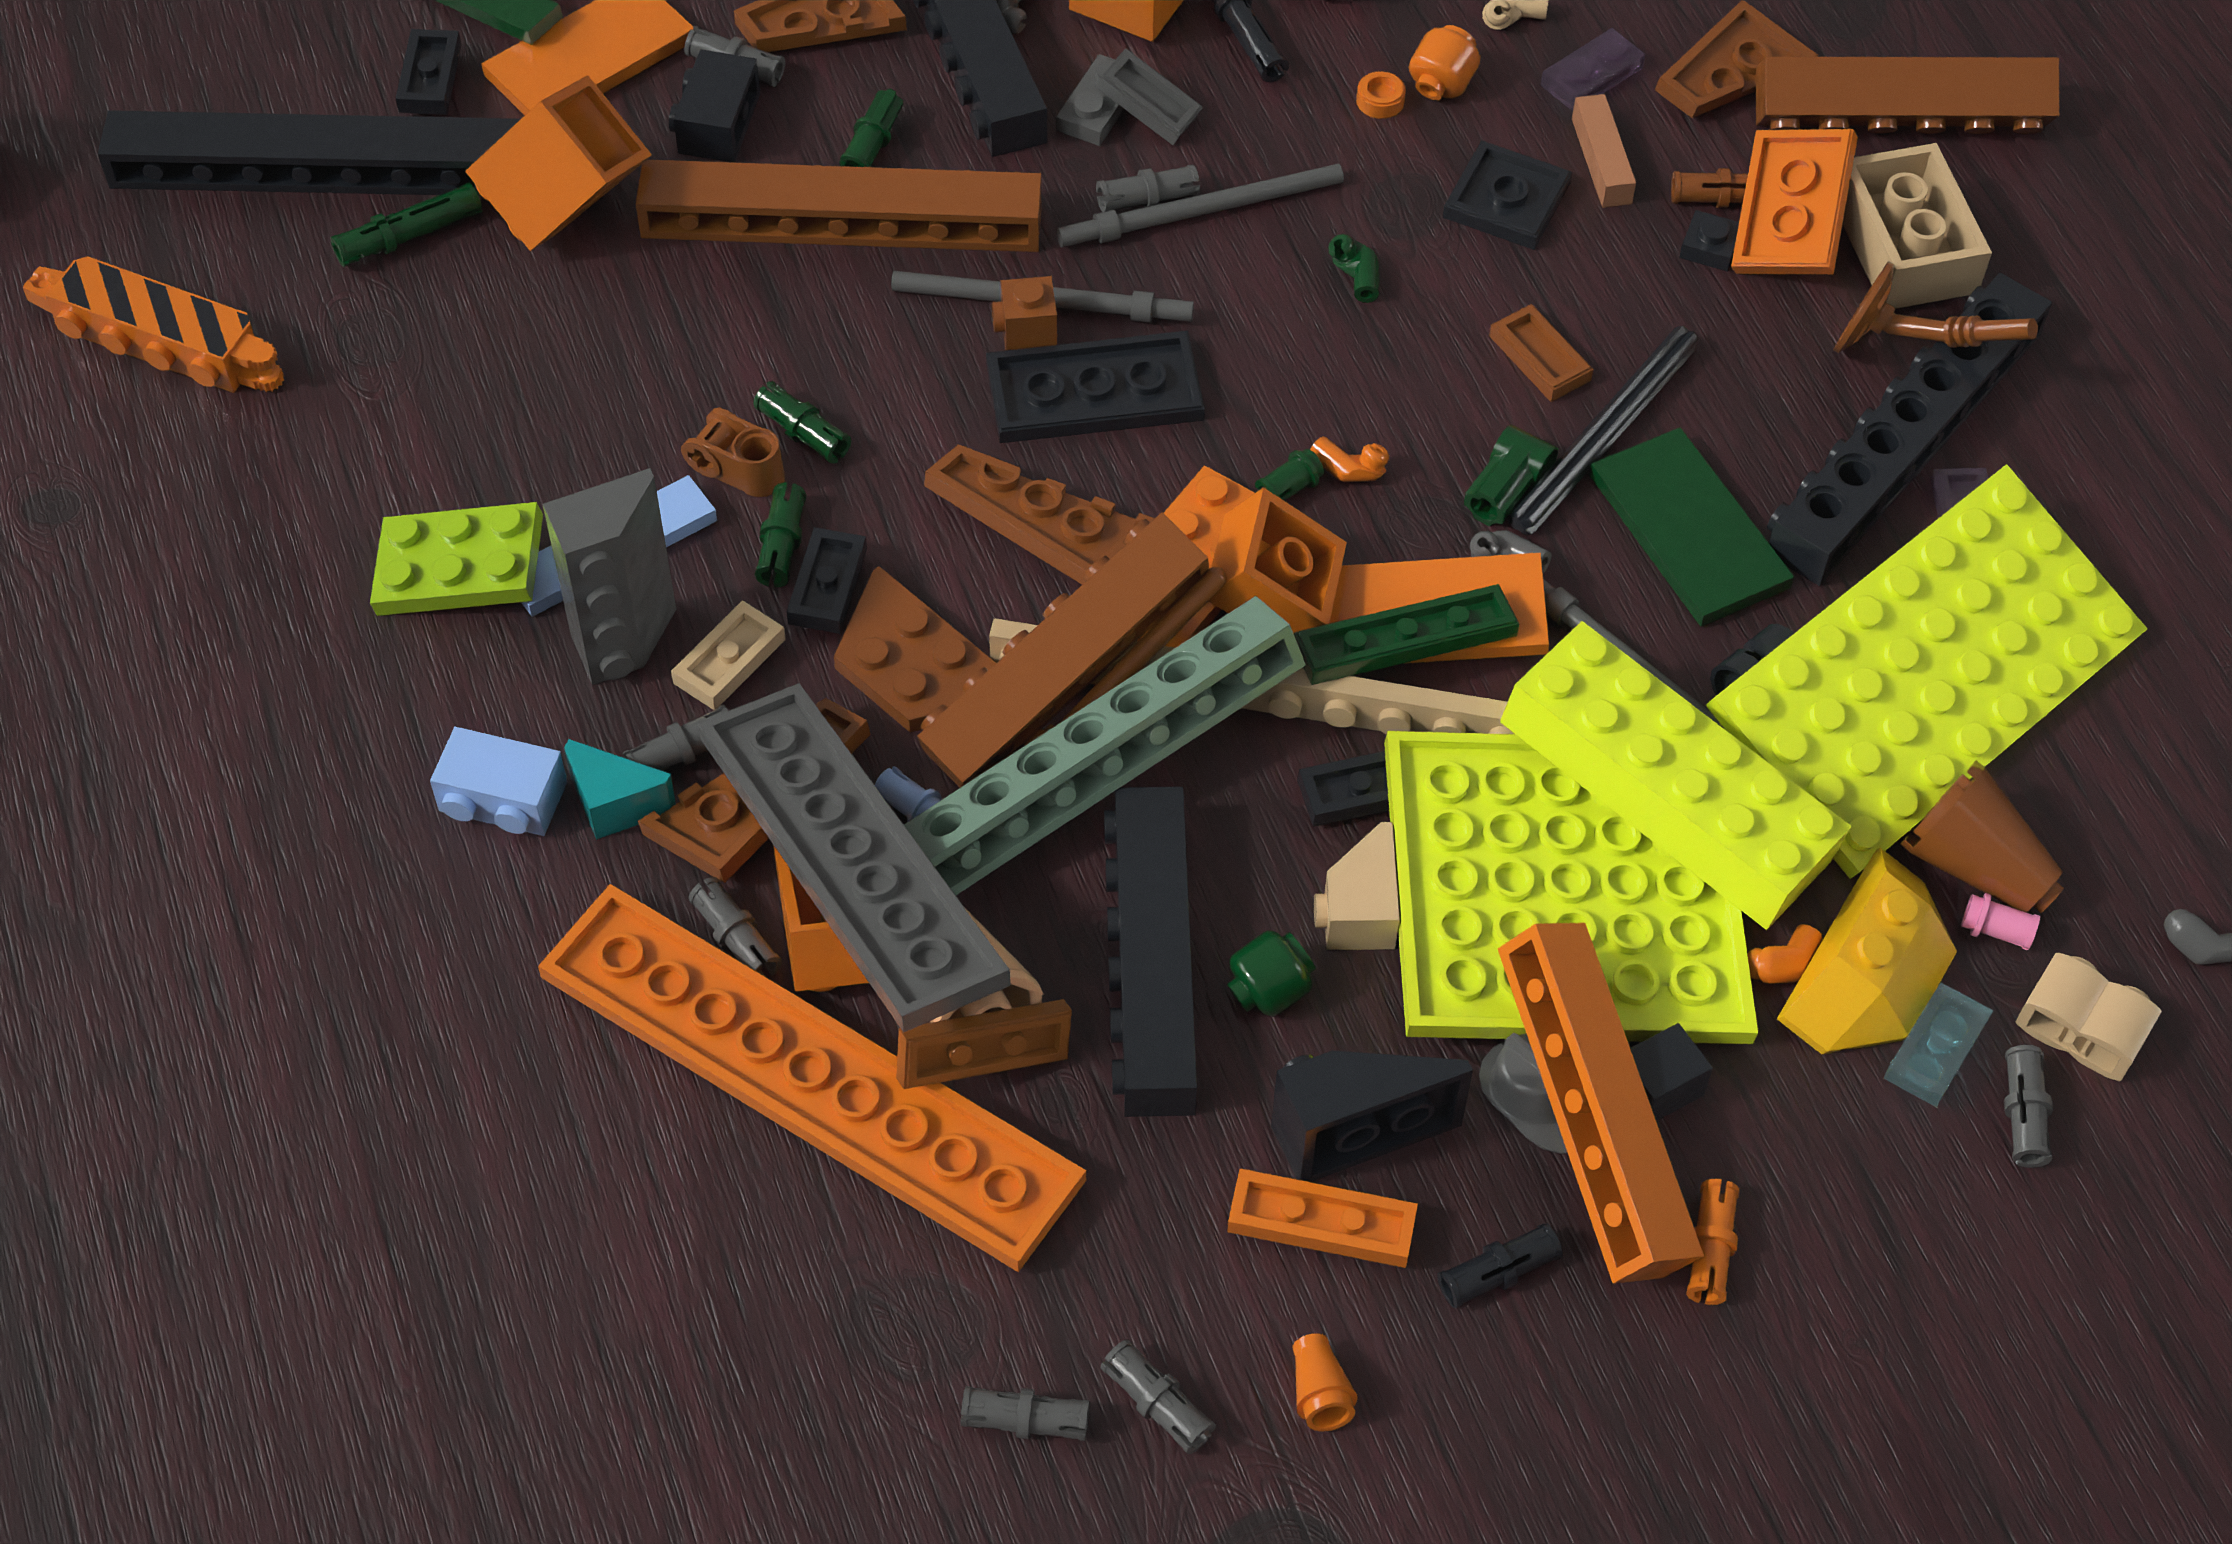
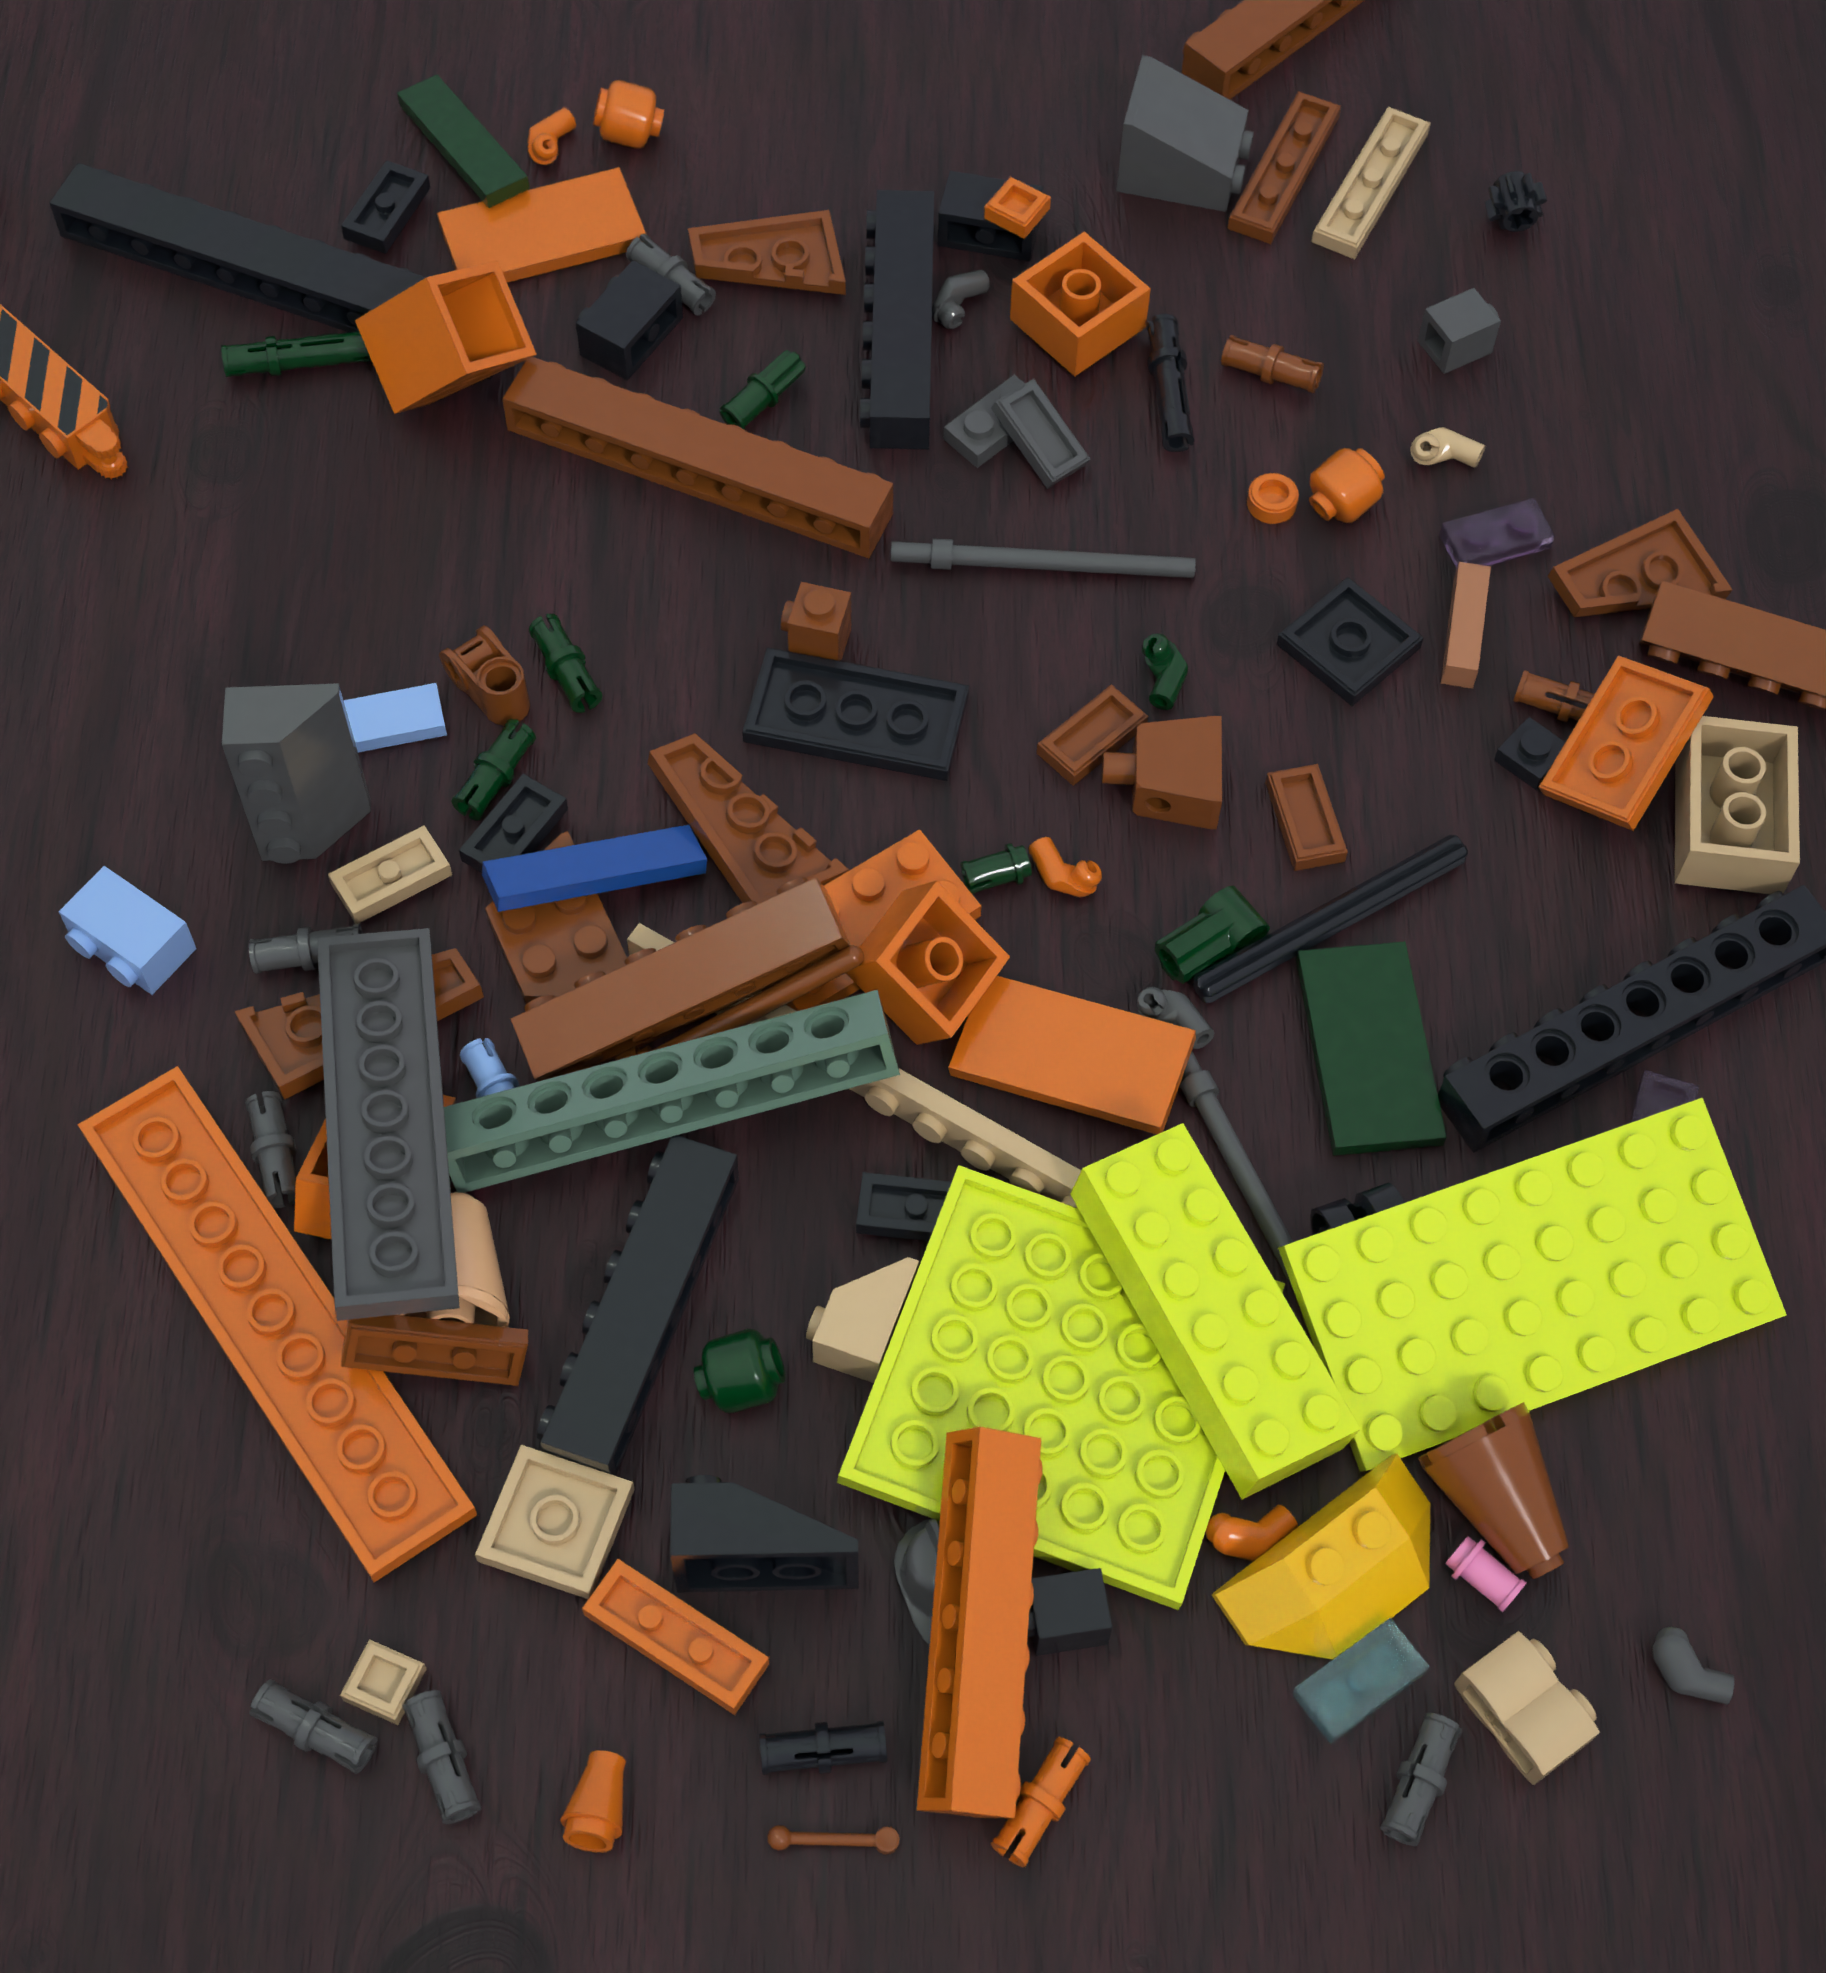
camera: 20 degrees right, 5 degrees up
(457, 559) = (178, 694): lime plate -> none
(615, 788) = (222, 975): teal slope -> none
(923, 587) = (593, 867): none -> blue tile
(1069, 1354) = (383, 1682): none -> tan tile
(1140, 306) = (934, 645): dark grey bar -> none
(1148, 188) = (997, 527): dark grey pin -> none
(1164, 1160) = (555, 1522): none -> tan plate
(1317, 340) = (1096, 728): none -> dark orange tile
(1406, 634) = (1021, 1071): dark green tile -> none
(1410, 347) = (1173, 770): none -> dark orange torso
(1590, 1326) = (885, 1840): none -> dark orange hinge
(1961, 331) = (1721, 936): dark orange dish -> none

